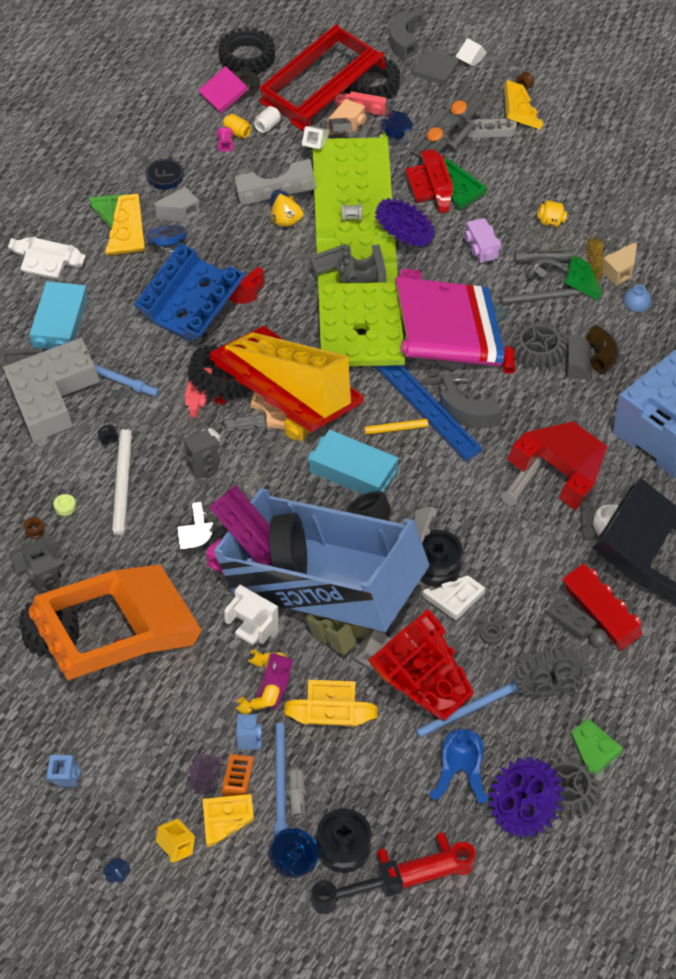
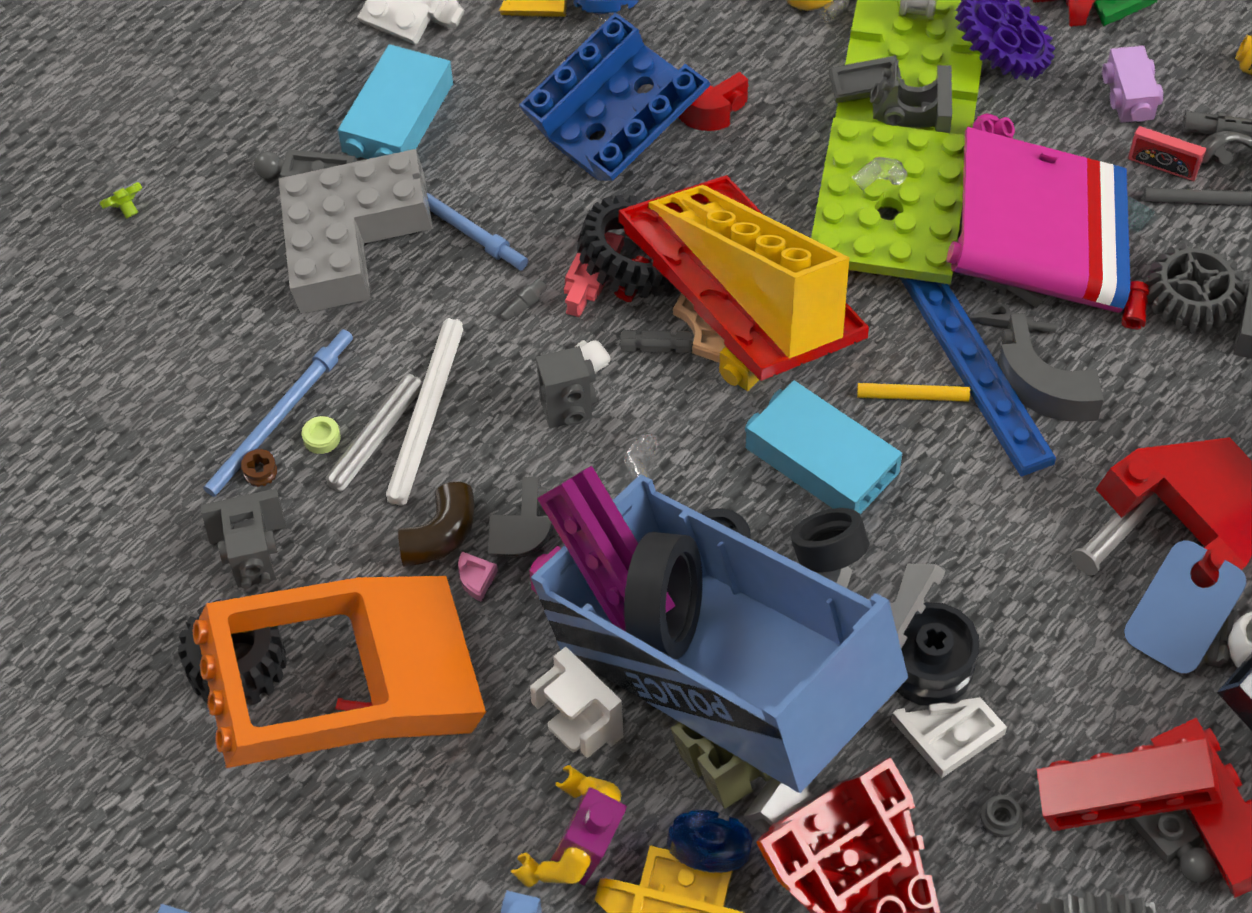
camera: 15 degrees right, 5 degrees up
(54, 465) = (323, 362): none -> medium blue bar
(95, 498) = (373, 433): none -> light grey axle
(107, 434) = (417, 329): black bush -> none
(151, 543) = (444, 531): none -> dark brown cylinder
(174, 563) = (476, 575): none -> bright pink tile
(339, 673) = (709, 842): none -> clear blue tile
(353, 306) = (880, 168): none -> clear arm
(509, 275) = (1166, 153): none -> slope
(555, 602) = (1128, 784): none -> brick
(563, 516) = (1176, 616): none -> medium blue piece

